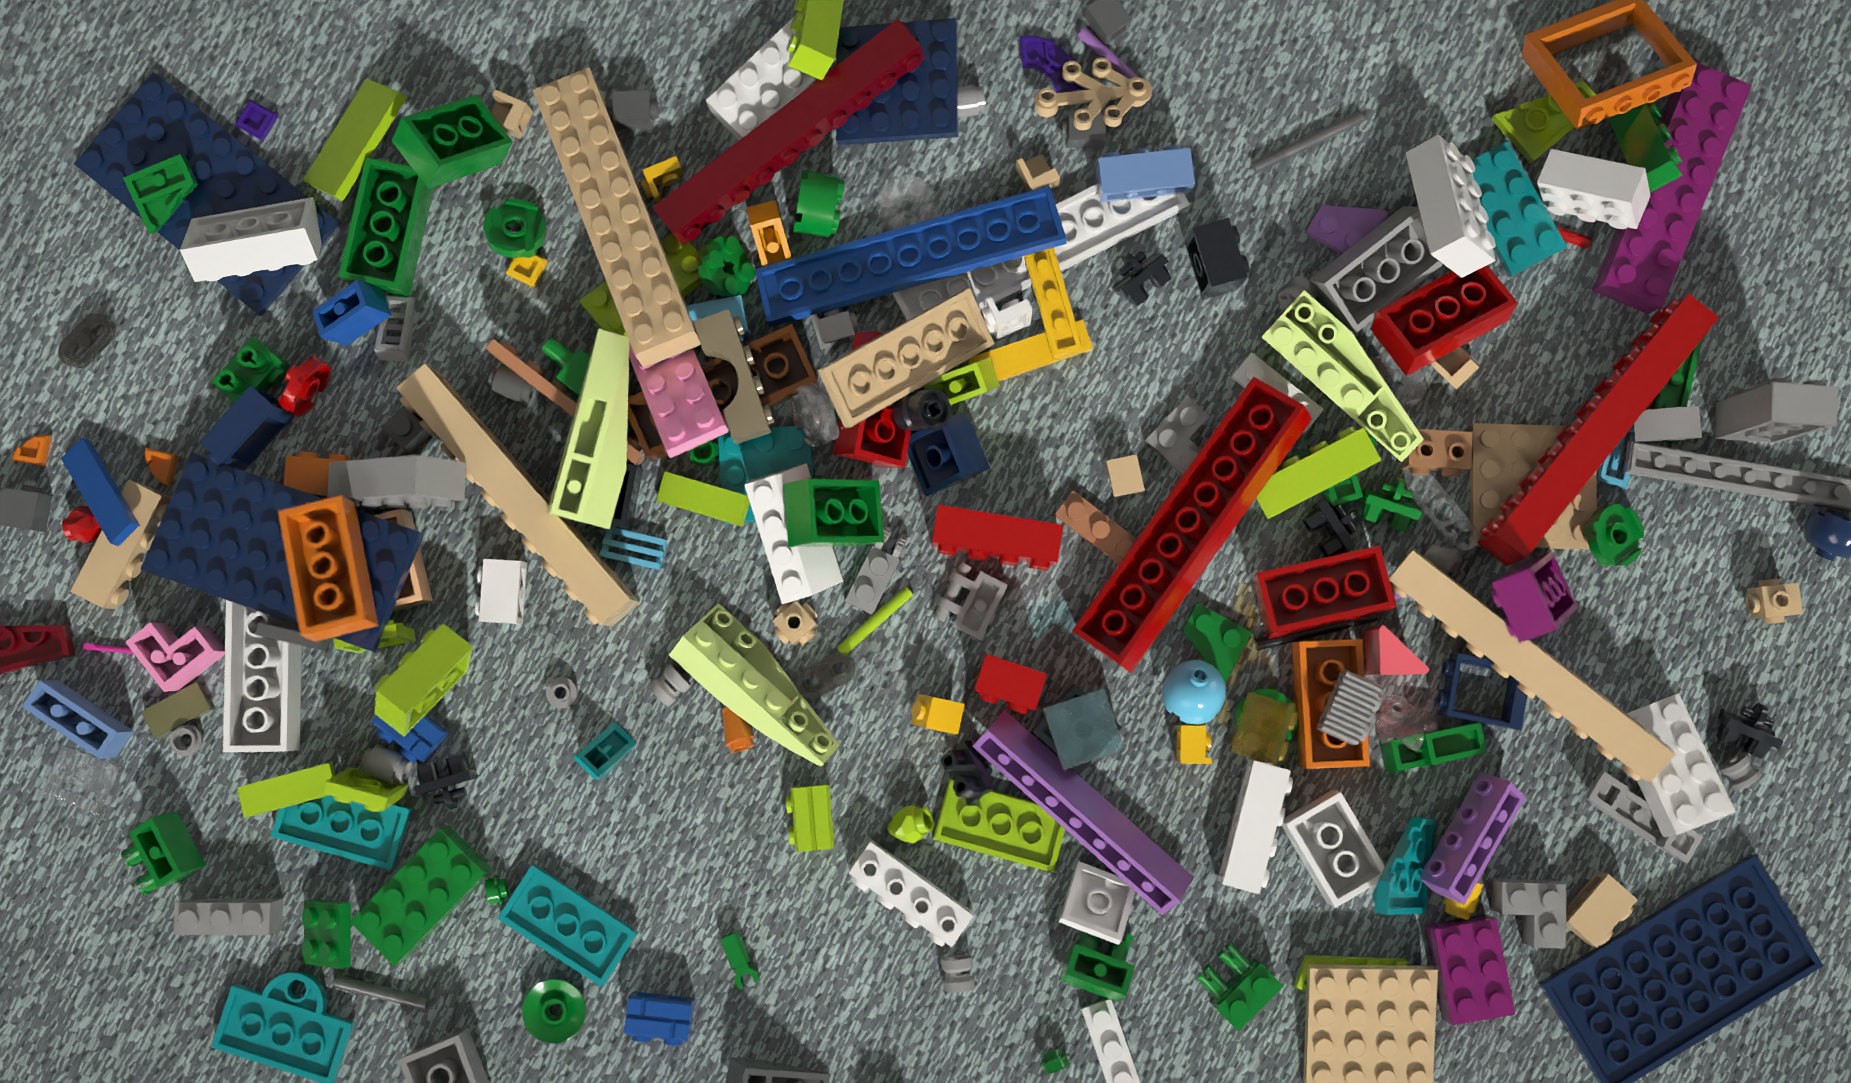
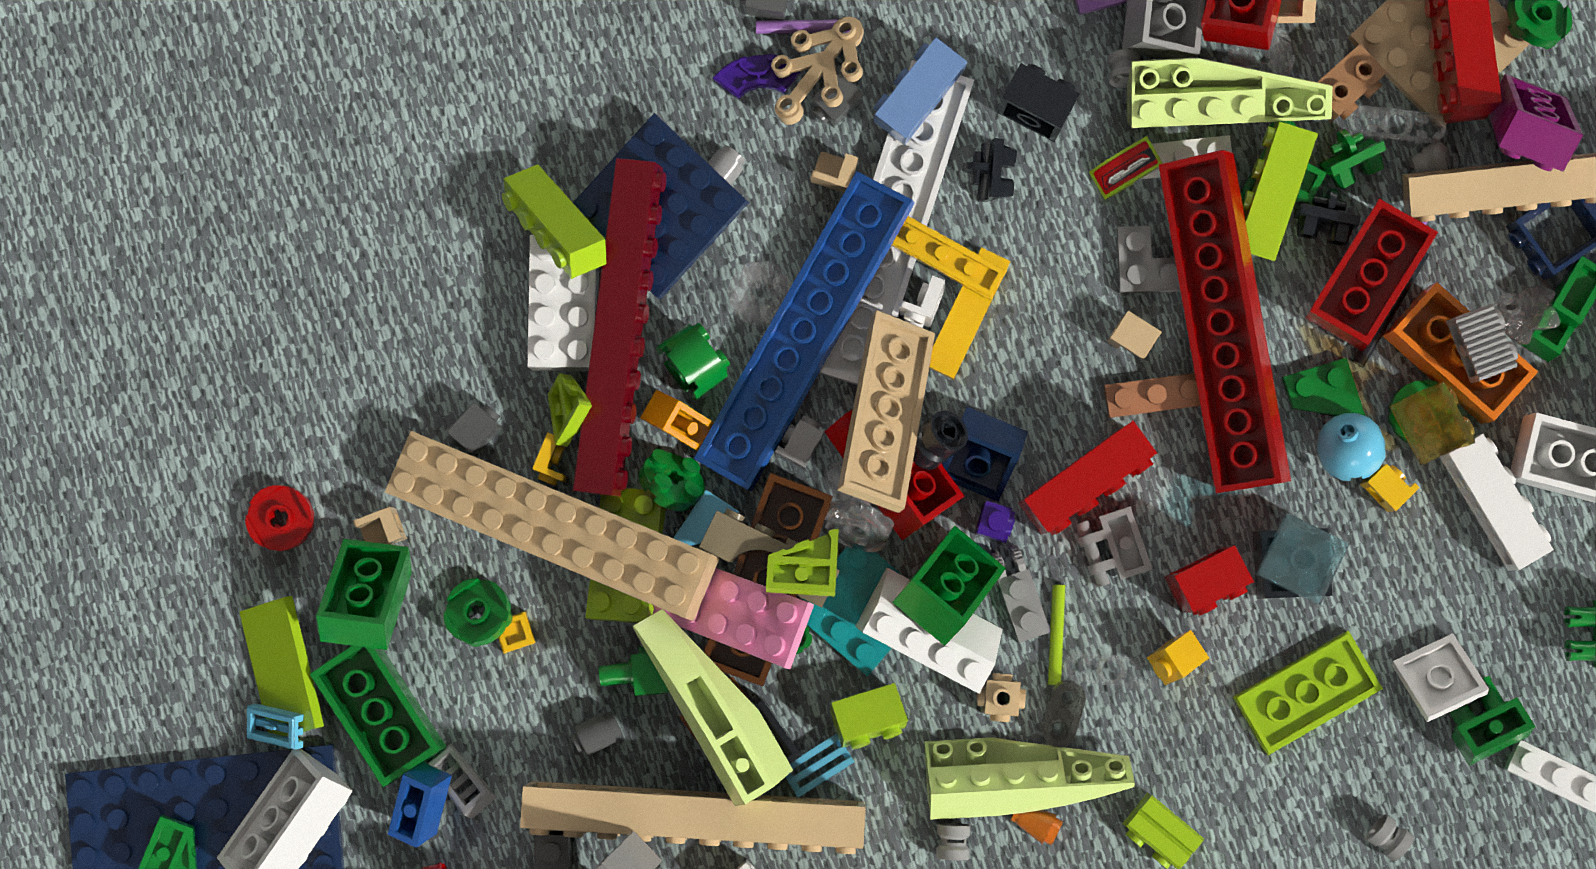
camera: 40 degrees left, 0 degrees up
(256, 120) = (185, 730): dark purple tile -> none
(319, 181) = (292, 728): none -> medium azure tile
(443, 29) = (261, 513): none -> red plate
(553, 391) = (639, 707): nougat plate -> none
(696, 548) = (868, 716): none -> lime brick
(703, 153) = (567, 408): none -> lime wing
(703, 498) = (834, 673): lime tile -> none
(747, 401) = (805, 568): none -> lime wing
(908, 506) = (995, 522): none -> dark purple brick
(910, 893) = (1294, 813): white brick -> none
(911, 823) = (1241, 760): lime rock -> none
(966, 381) = (946, 383): lime brick -> none
(969, 772) = (1246, 677): black hips -> none
(1055, 1061) = (1527, 829): green plate -> none
(1084, 813) = (1361, 621): medium lavender brick -> none
(1231, 361) = (1125, 168): none -> slope
(1388, 655) = (1467, 275): coral slope -> none

